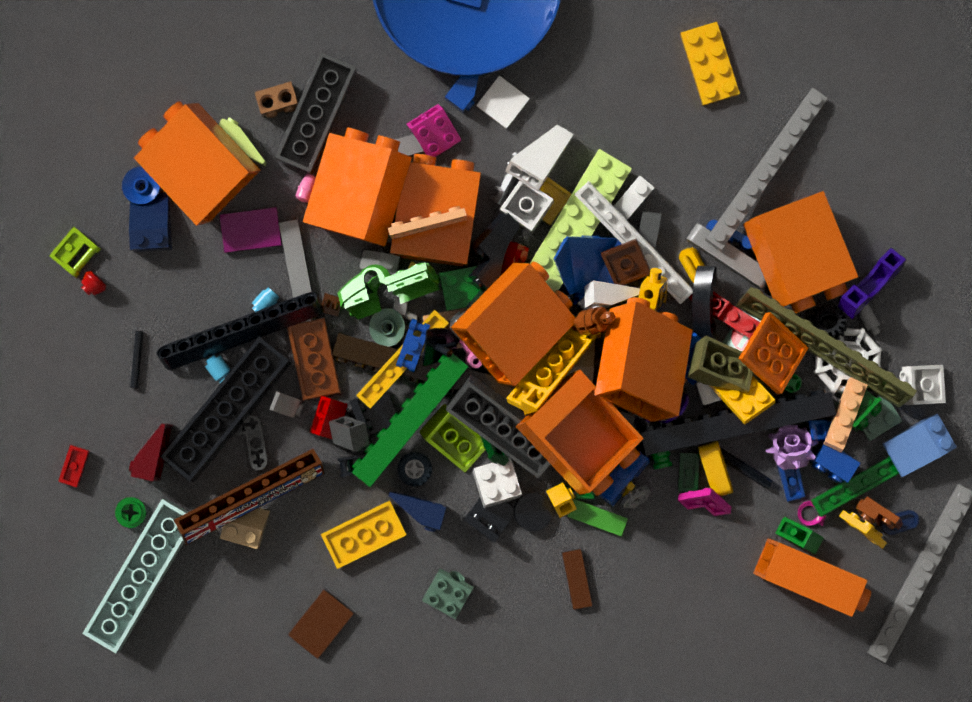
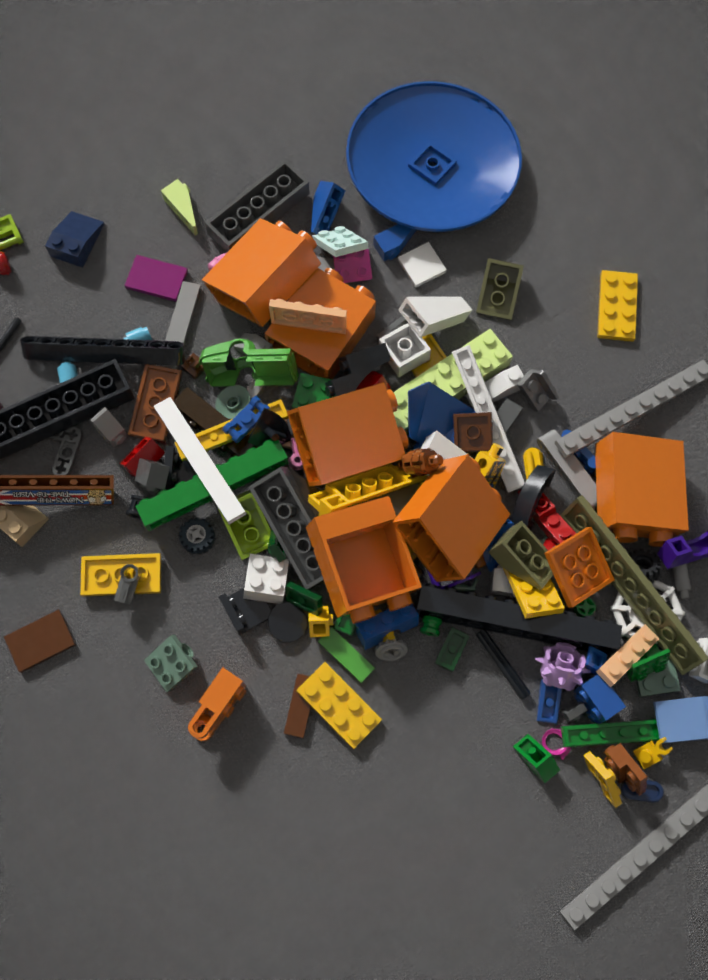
camera: 25 degrees right, 15 degrees down
(131, 184) = (83, 199): blue dish -> none
(195, 162) = (136, 200): orange brick -> none
(276, 93) = (231, 183): medium nougat brick -> none
(377, 544) = (127, 587): none -> dark grey piece
(382, 84) = (325, 205): none -> blue slope
(388, 404) = (200, 460): none -> white tile
(416, 119) = (340, 241): none -> light aqua plate
(423, 511) = (188, 577): dark blue slope -> none
(506, 611) = (216, 704): none -> orange brick
(540, 487) = (304, 598): none -> dark green plate
(590, 97) = (500, 288): none -> olive slope
(610, 564) = (339, 705): none -> yellow plate
(667, 191) = (537, 388): none -> flat silver bracket
(705, 498) = (459, 679): dark pink plate -> none
(715, 468) = (479, 656): yellow beam -> none
(812, 578) = (535, 801): orange brick -> none
(816, 480) = (574, 711): none -> dark grey plate
(896, 489) = (651, 753): none -> yellow plate

